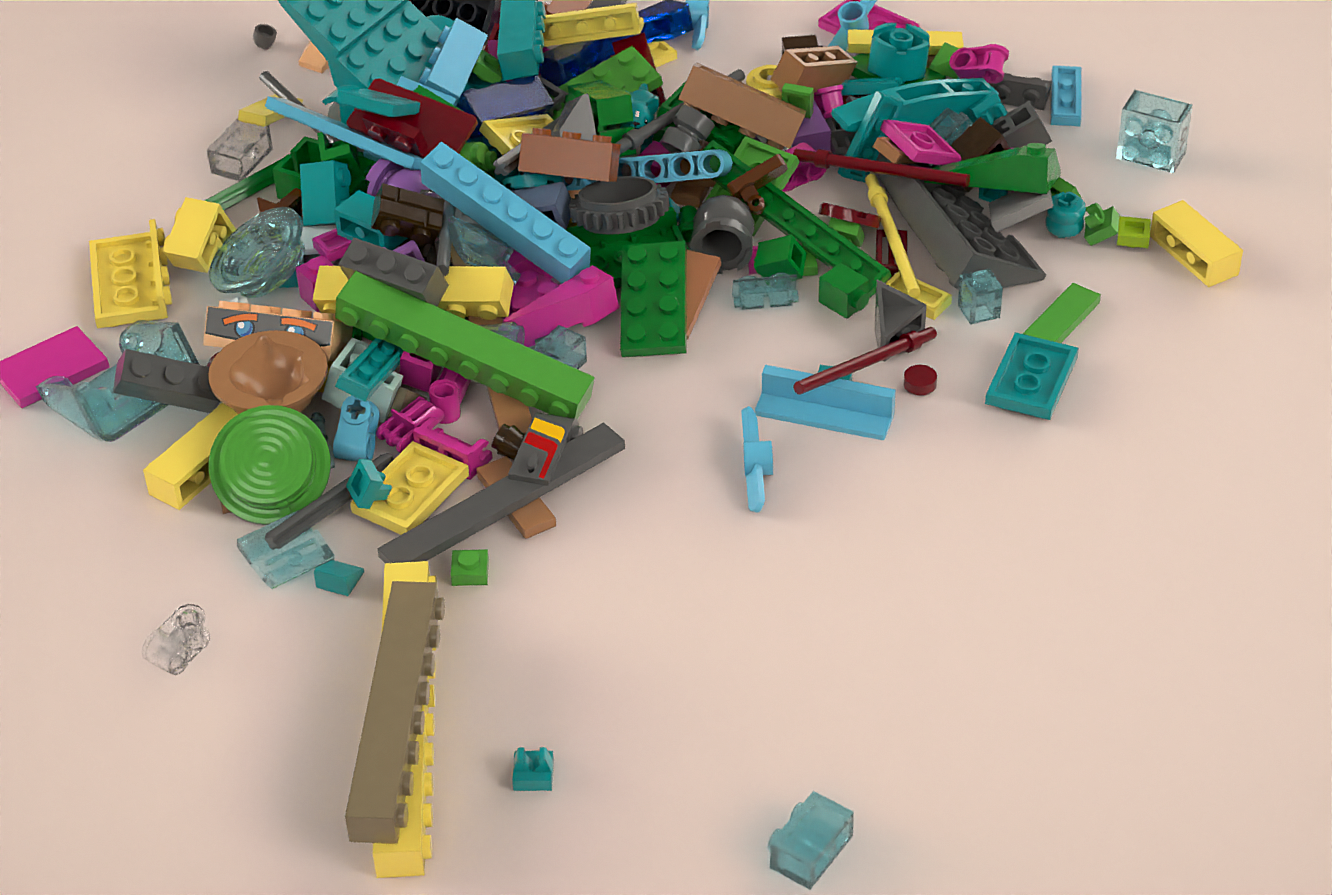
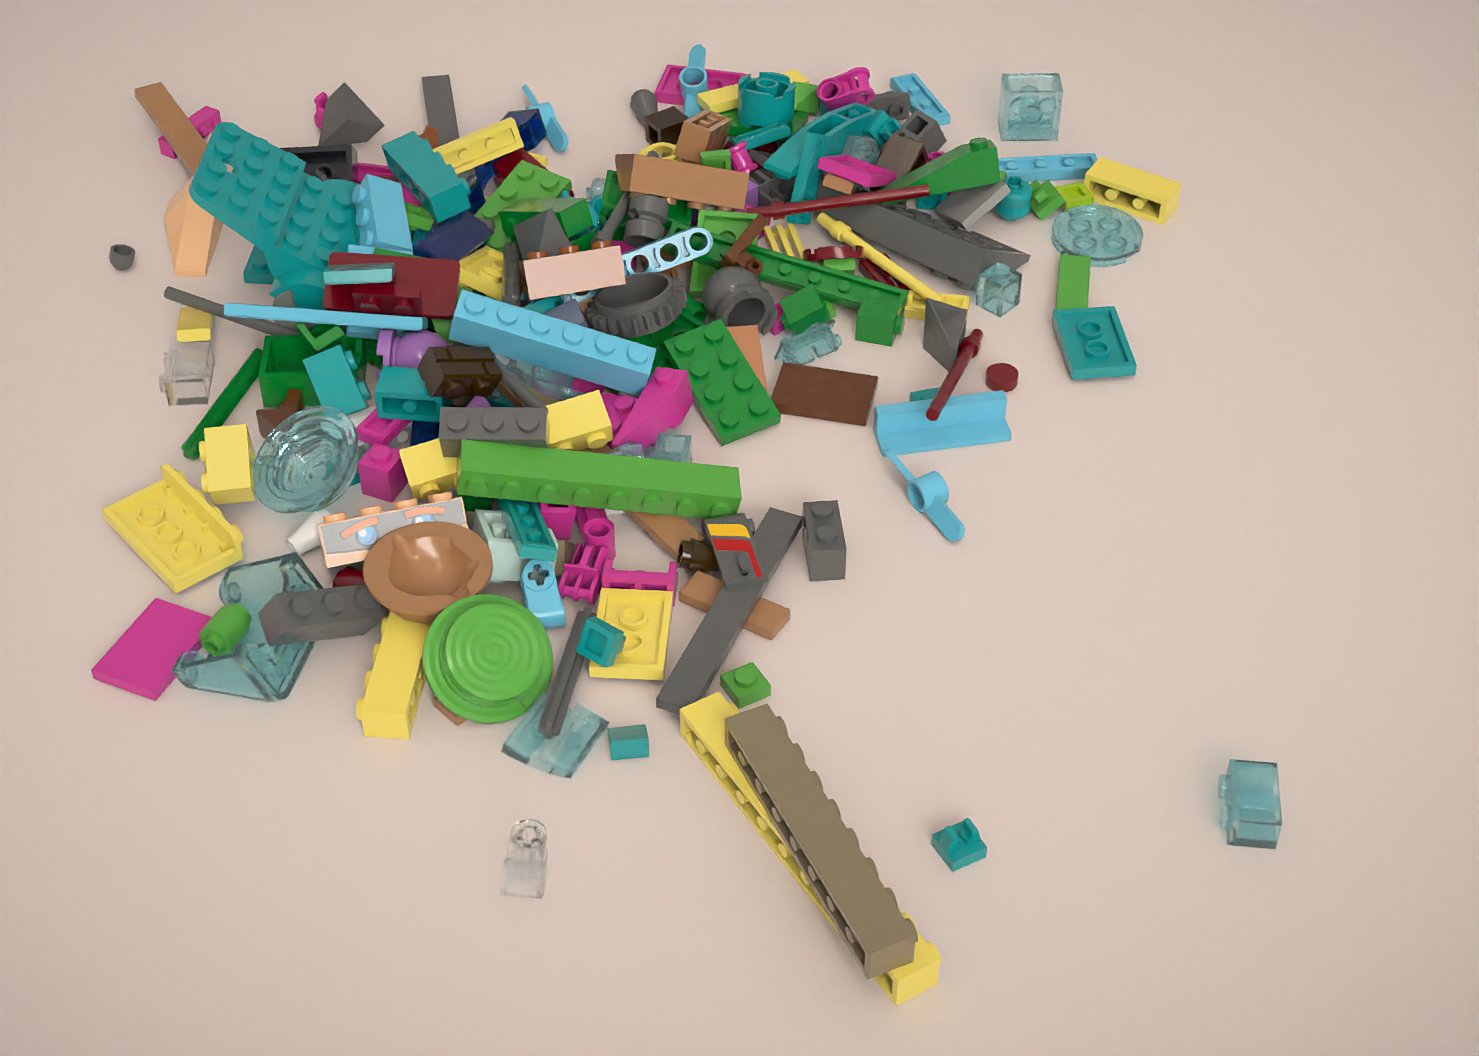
camera: 30 degrees left, 0 degrees up
(99, 369) = (225, 629): none -> bright green brick
(629, 468) = (824, 540): none -> dark grey brick
(744, 339) = (824, 393): none -> reddish brown tile
(799, 24) = (643, 103): none -> dark grey cone
(825, 182) = (782, 234): none -> light yellow tile
(1125, 193) = (1048, 167): none -> medium azure tile
(1129, 275) = (1097, 232): none -> clear light blue tile

